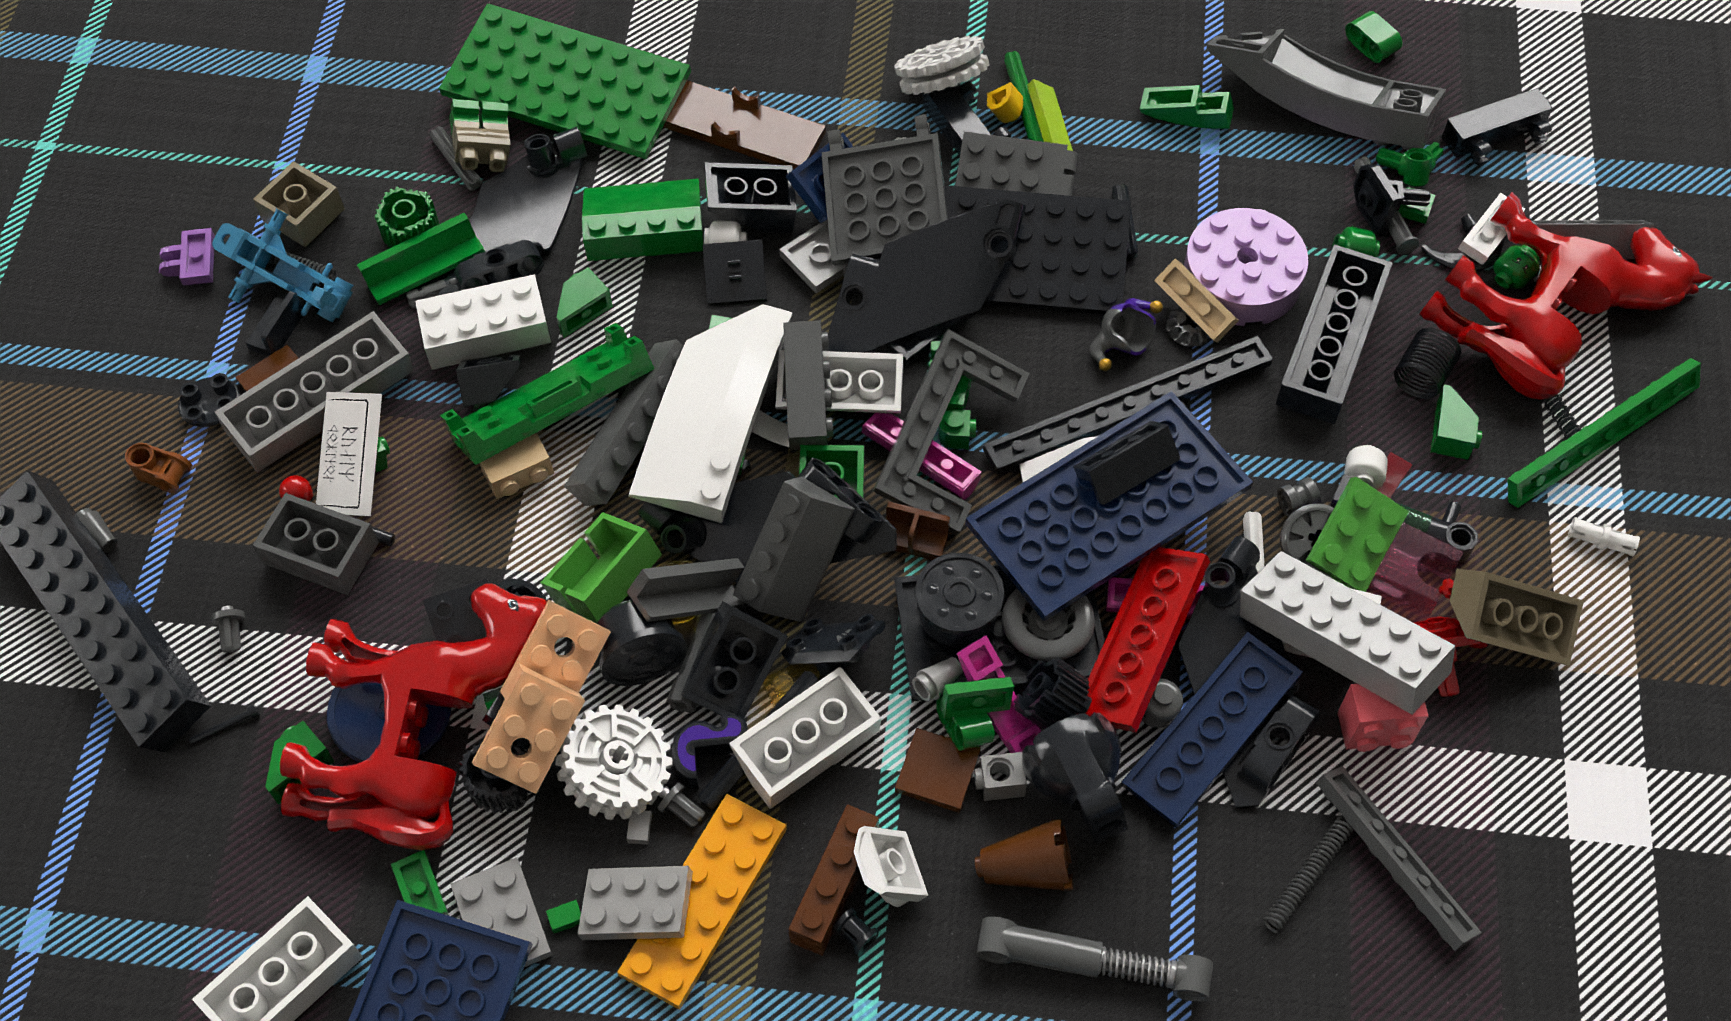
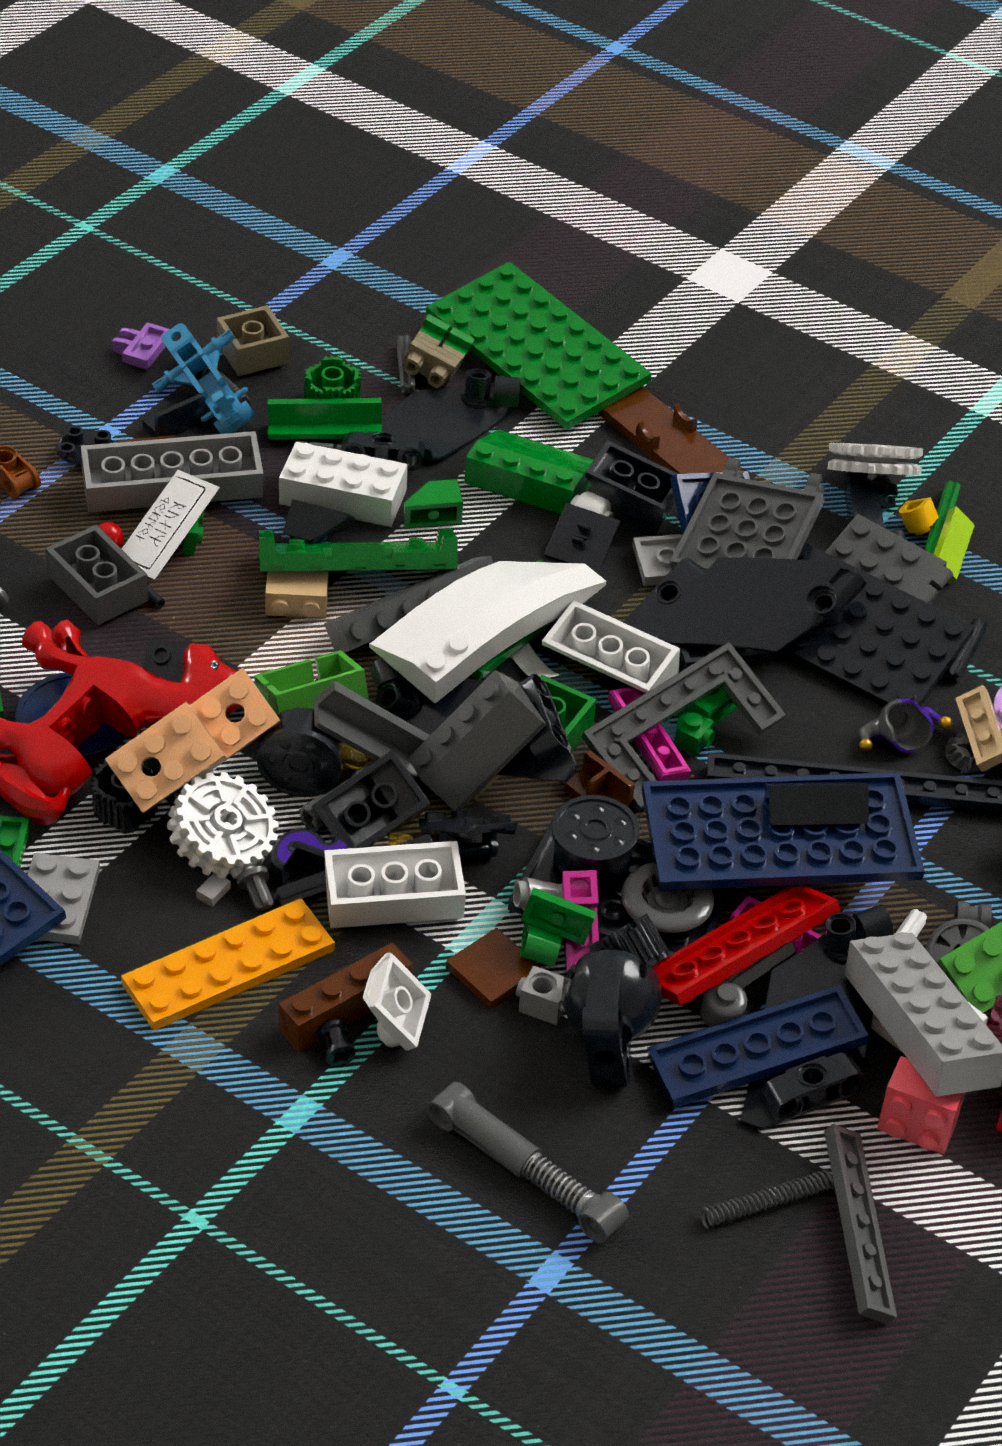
camera: 25 degrees right, 15 degrees down
(564, 916) = (108, 921): green piece -> none
(635, 903) = (170, 933): light grey plate -> none
(806, 384) = (577, 629): dark grey brick -> none
(1029, 859) = (524, 1060): reddish brown cone -> none

